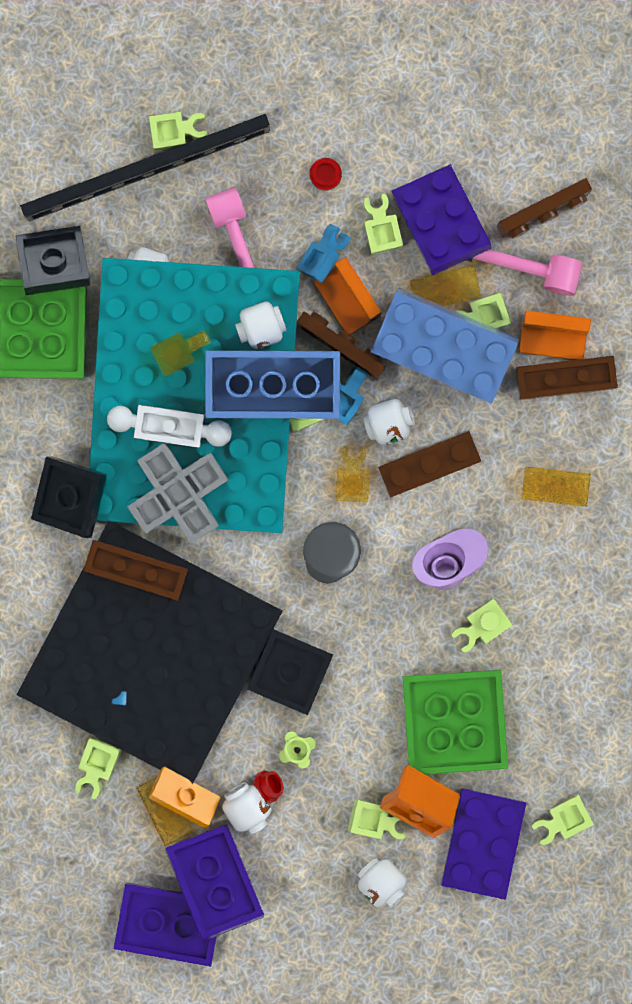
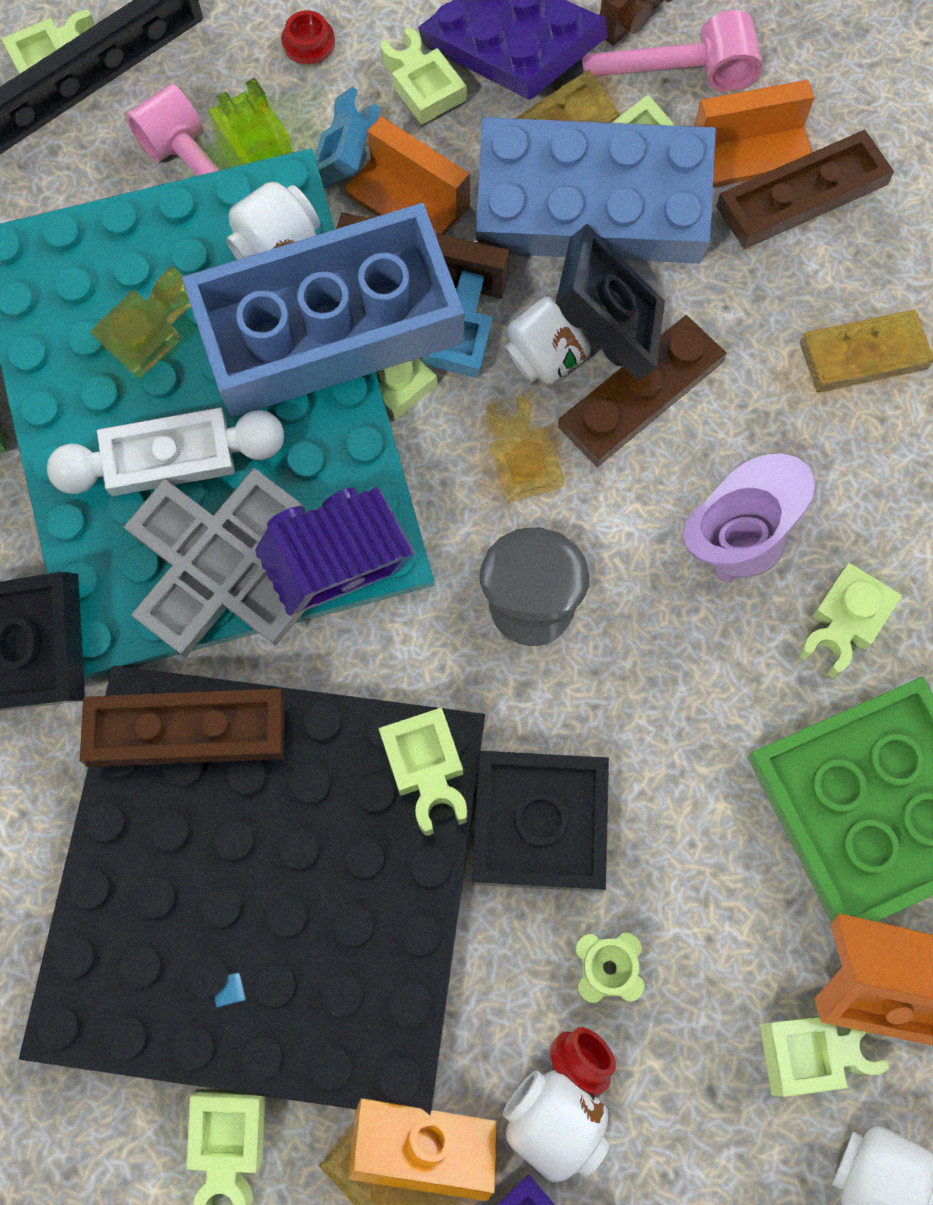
camera: 20 degrees left, 15 degrees down
(235, 511) = (332, 548): none -> dark purple brick
(243, 625) = (423, 760): none -> yellowish green plate
(272, 237) = (248, 127): none -> clear neon green brick
(426, 419) = (611, 303): none -> black plate

